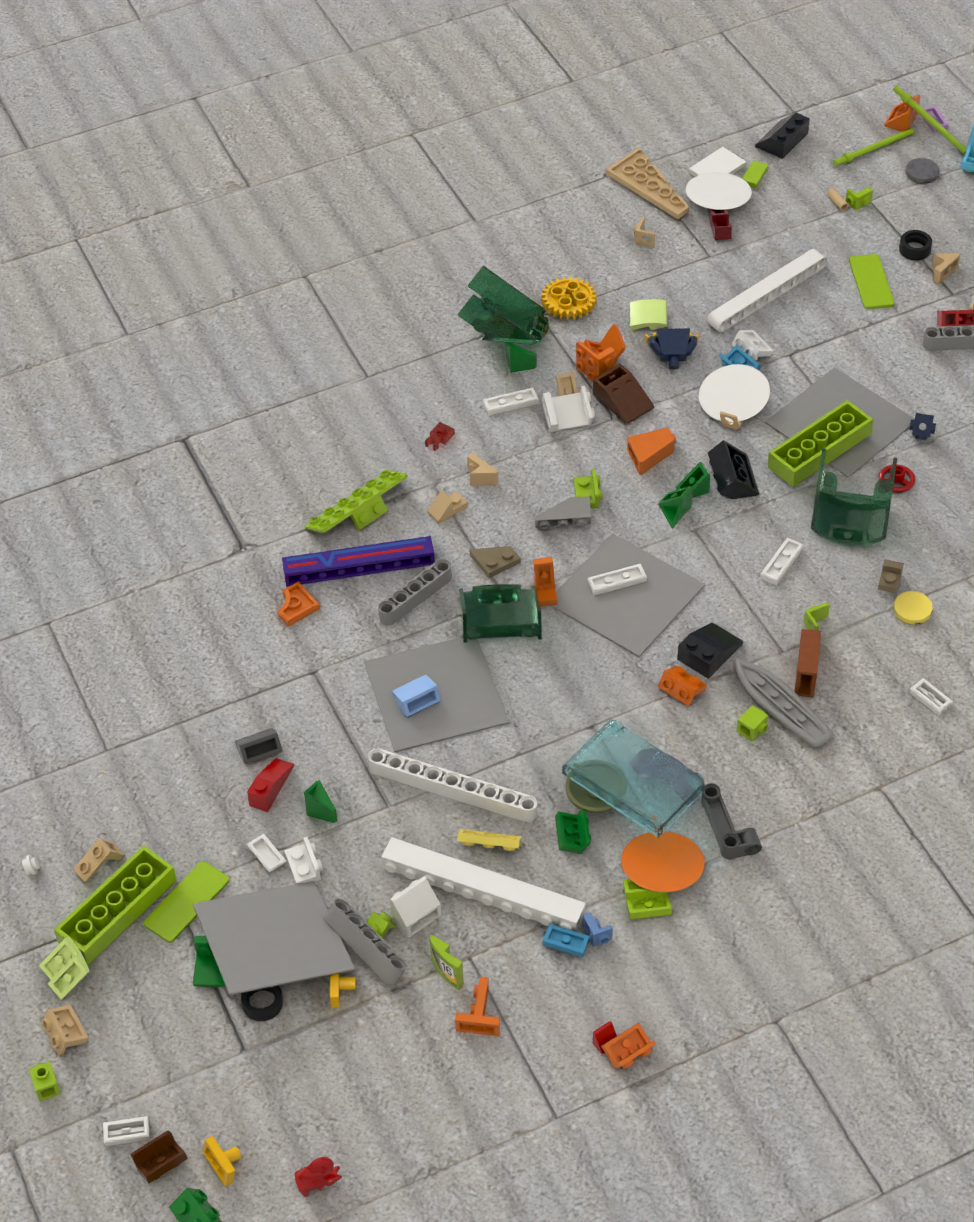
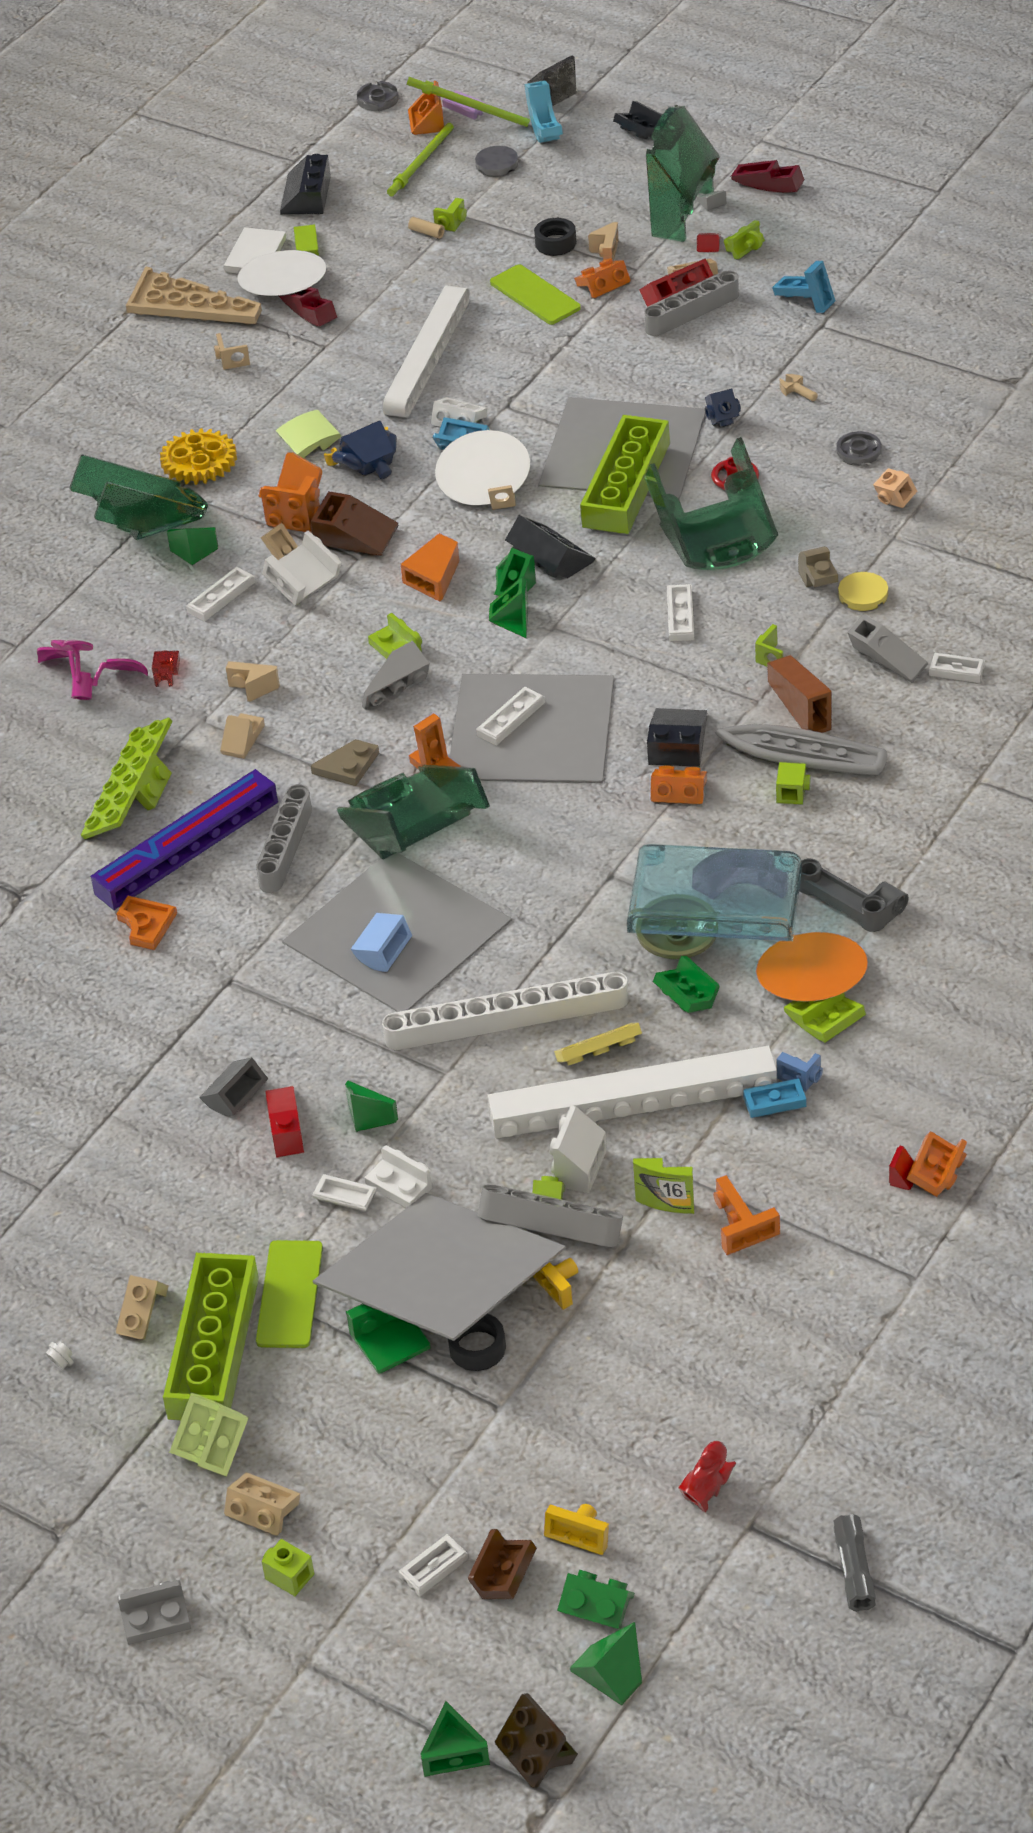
camera: 30 degrees left, 5 degrees down
(380, 422) = (82, 681): none -> dark pink plant
(881, 87) = (378, 96): none -> flat silver tile
(890, 659) = (886, 648): none -> light grey slope
(923, 290) = (604, 278): none -> orange bracket

